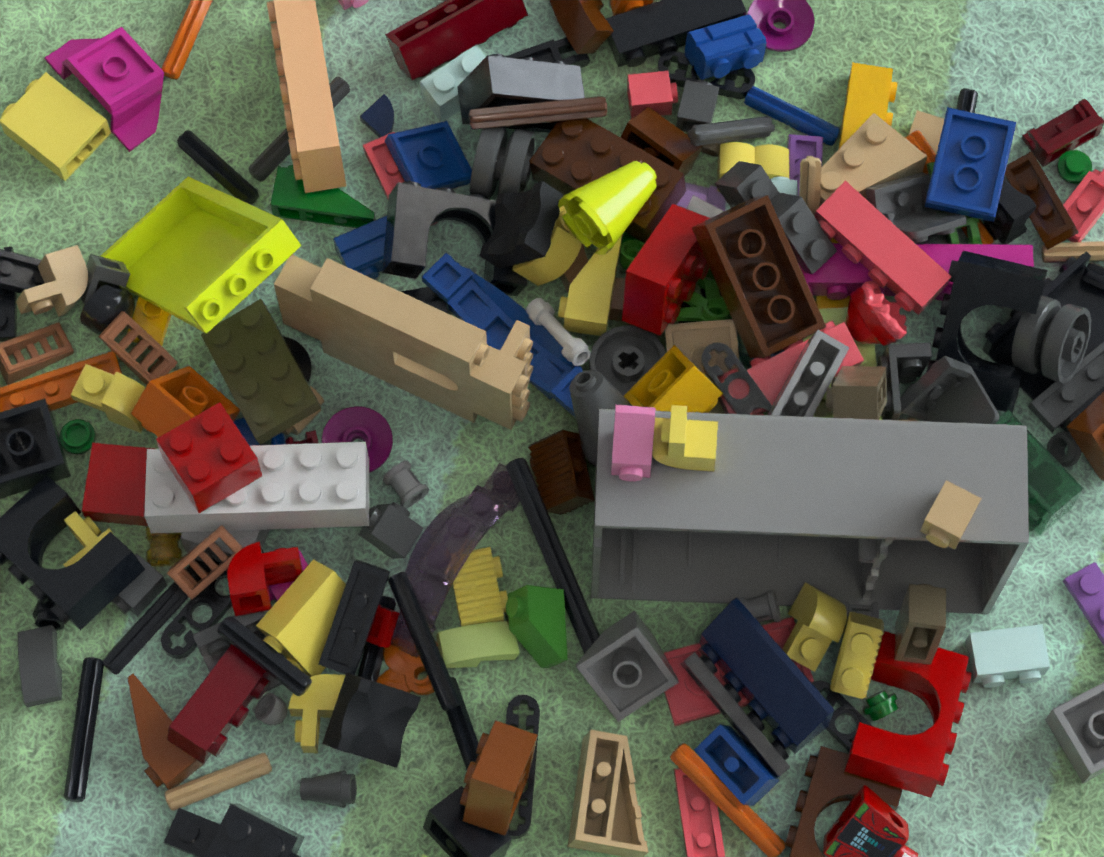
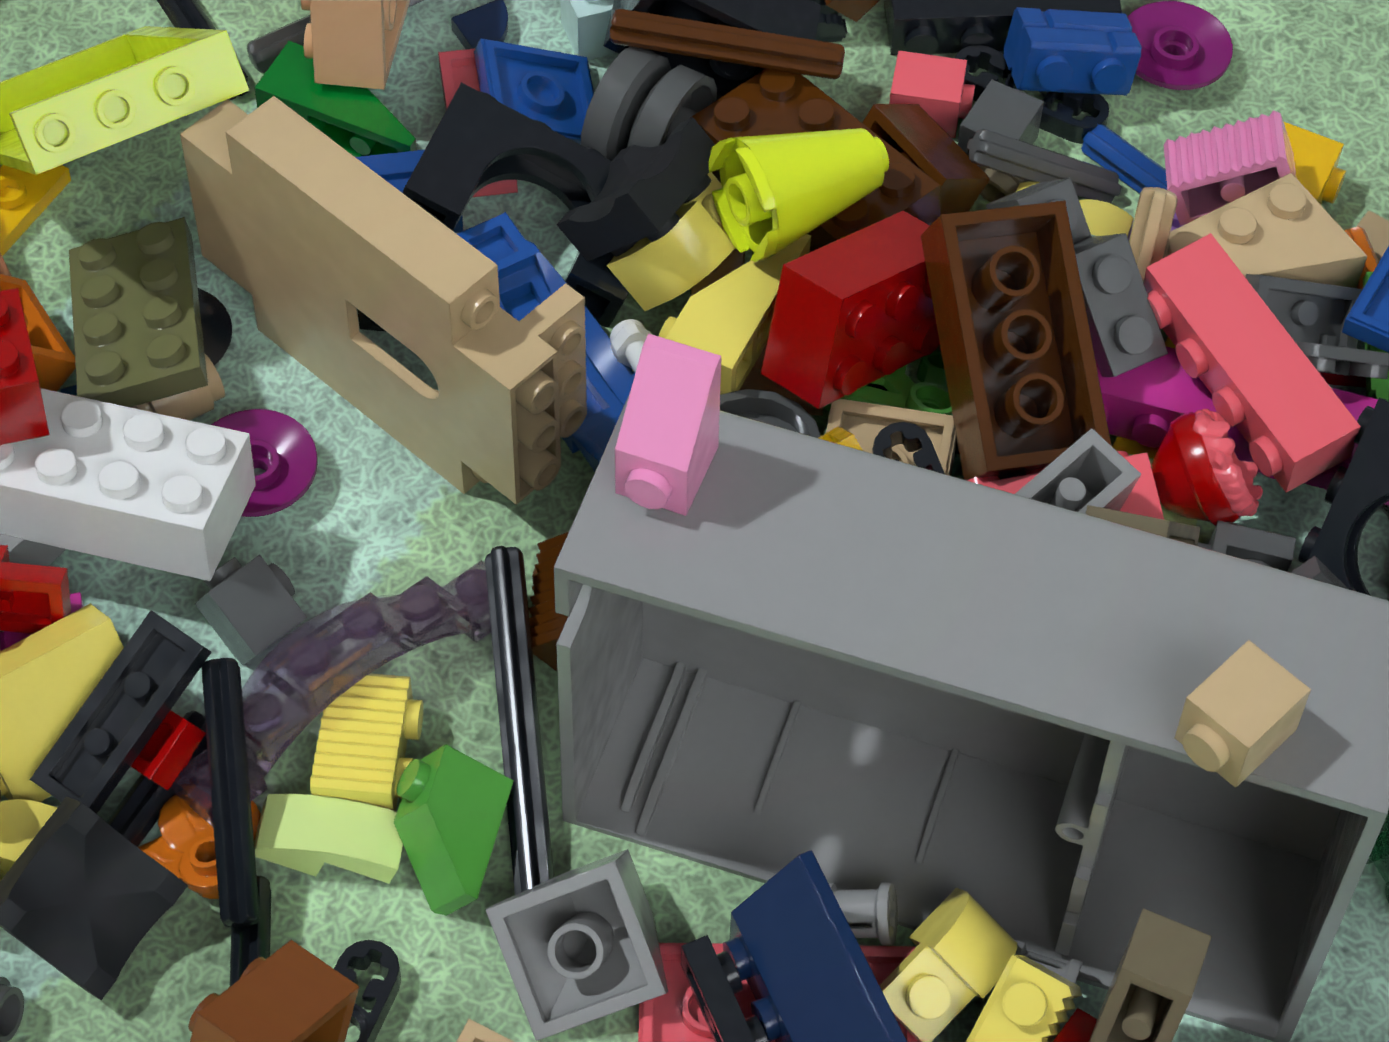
camera: 15 degrees right, 15 degrees down
(405, 484) = (308, 550): light grey bush -> none
(685, 442) = (767, 461): light yellow brick -> none
(835, 108) = (1226, 163): none -> bright pink brick

